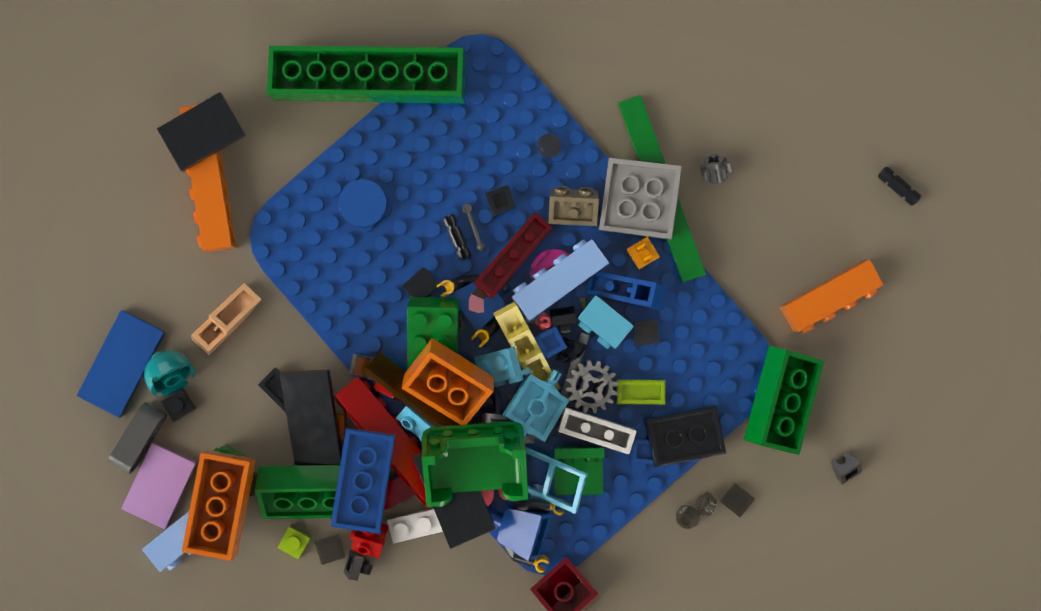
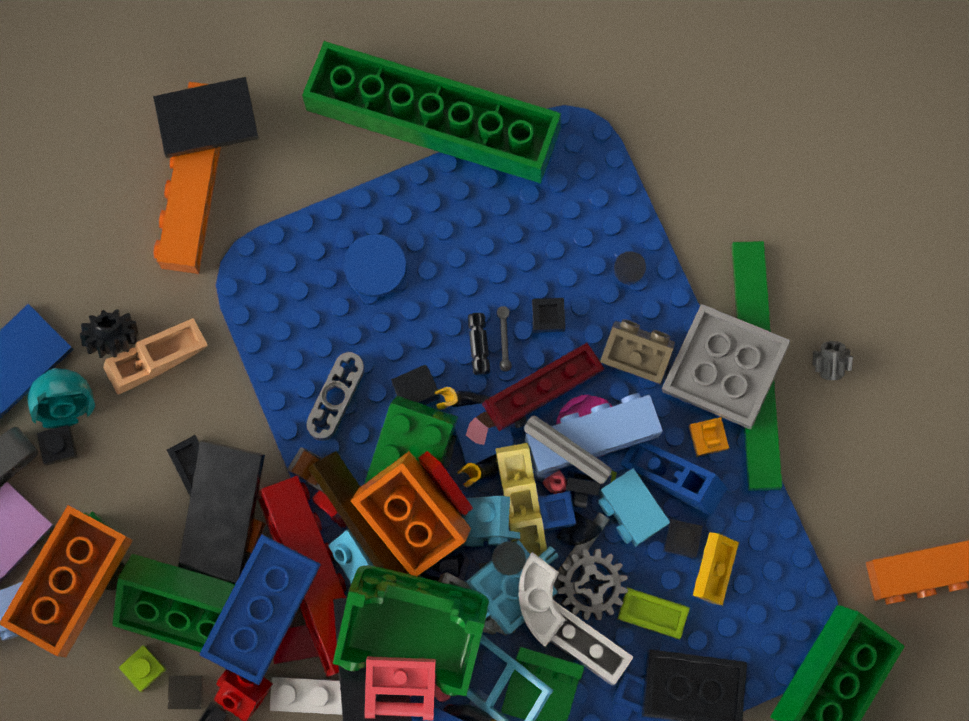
camera: 15 degrees right, 10 degrees down
(187, 314) = (108, 333): none -> black gear
(373, 291) = (353, 378): none -> light grey beam
(465, 352) = (445, 482): none -> red tile
(478, 501) = (400, 677): none -> coral plate
(527, 390) = (508, 558): none -> clear smoke plate
(545, 299) = (567, 449): none -> light grey axle
(556, 412) = (537, 599): none -> white tile
(675, 347) = (715, 568): none -> yellow plate

